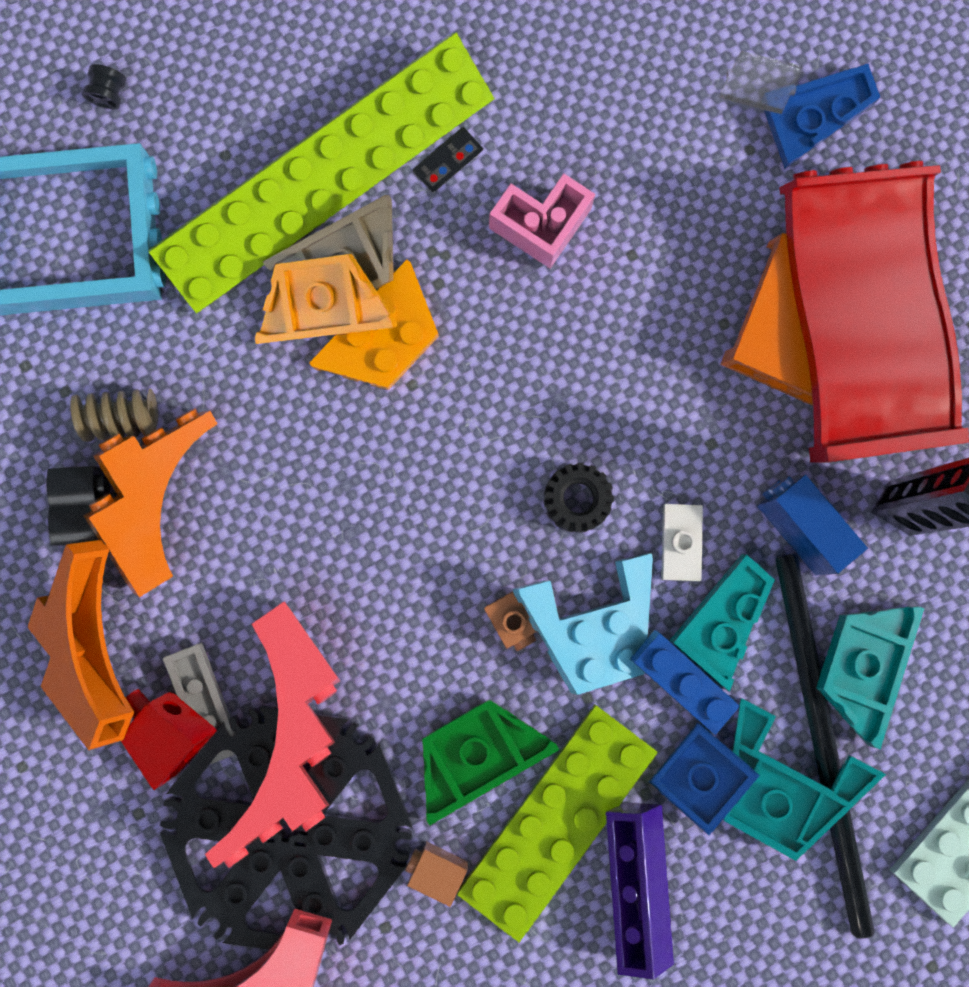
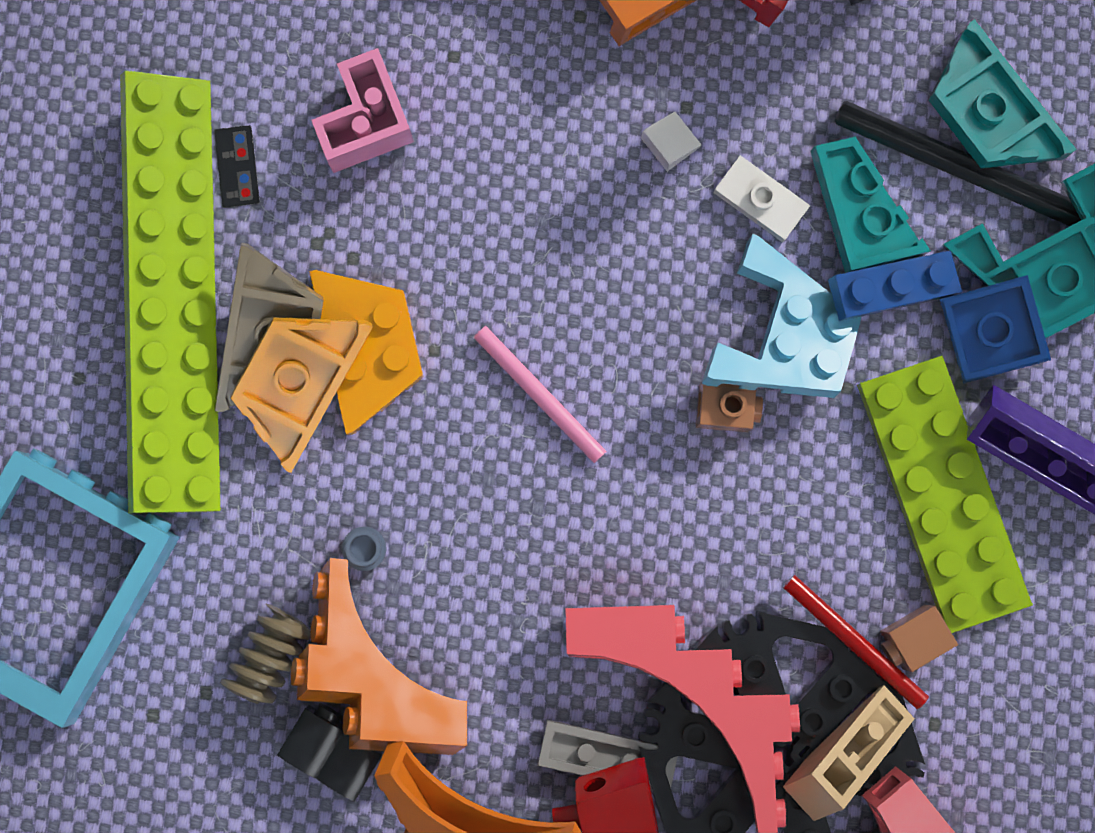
camera: 55 degrees left, 0 degrees up
(236, 431) = (364, 548): none -> sand blue plate
(314, 880) = (849, 755): none -> tan slope
(403, 829) = (856, 642): none -> red bar
(430, 480) = (540, 394): none -> bright pink bar
(476, 756) = (832, 527): green wing -> none
(600, 491) = (659, 240): black tyre -> none
(678, 448) = (670, 140): none -> white slope
(811, 525) = (829, 67): blue brick -> none

